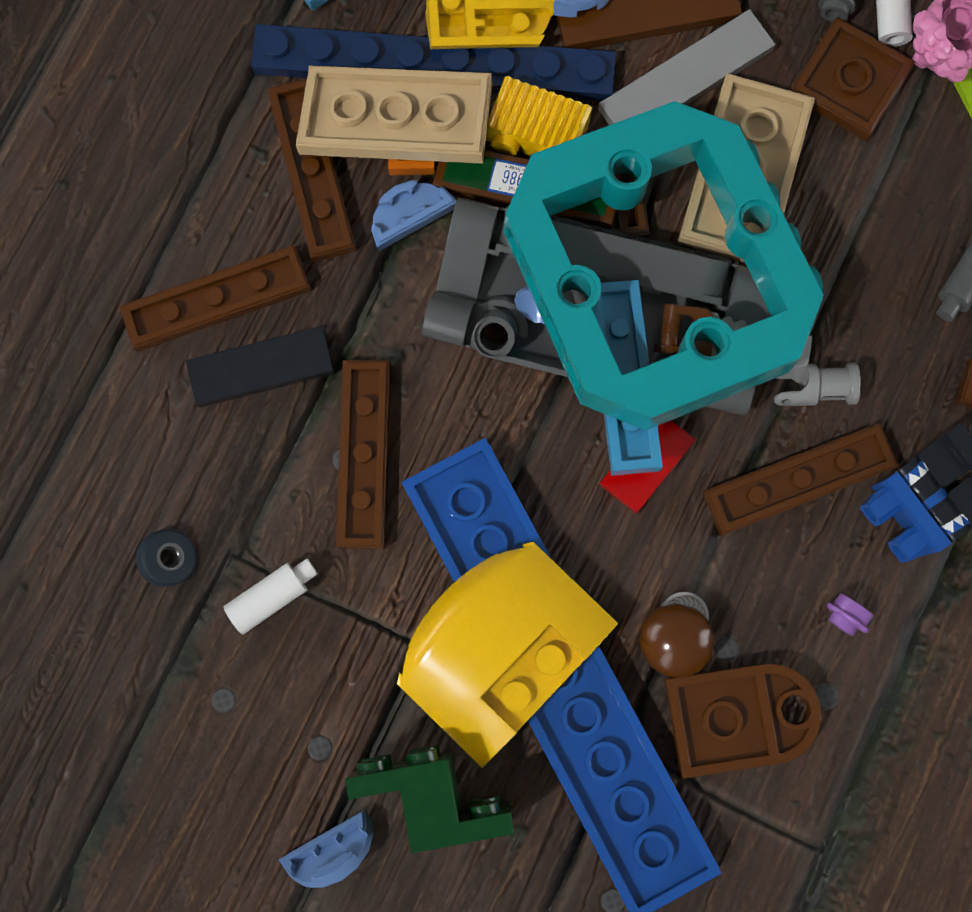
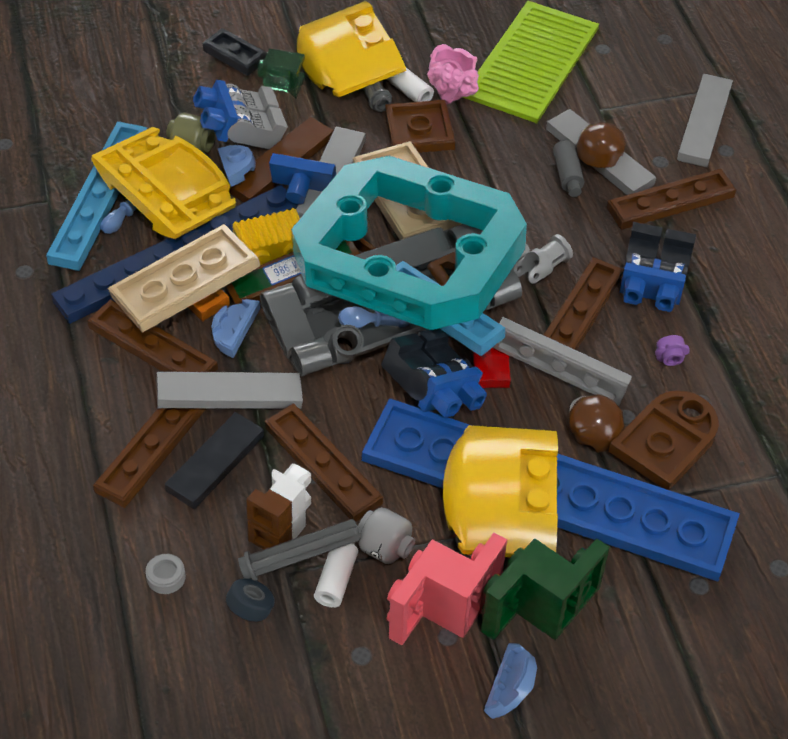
camera: 45 degrees left, 30 degrees down
(113, 463) = (165, 573): none -> light grey tile
(194, 524) = (298, 549): none -> dark grey axle
(259, 495) = (281, 511): none -> hips
(333, 295) = (228, 390): none -> light grey tile
(336, 717) = (444, 588): none -> coral bracket
(341, 599) = (385, 535): none -> light grey head
(553, 448) = (434, 372): none -> hips
(637, 65) = (300, 175): none -> blue tile
(706, 541) = (563, 361): none -> light grey tile

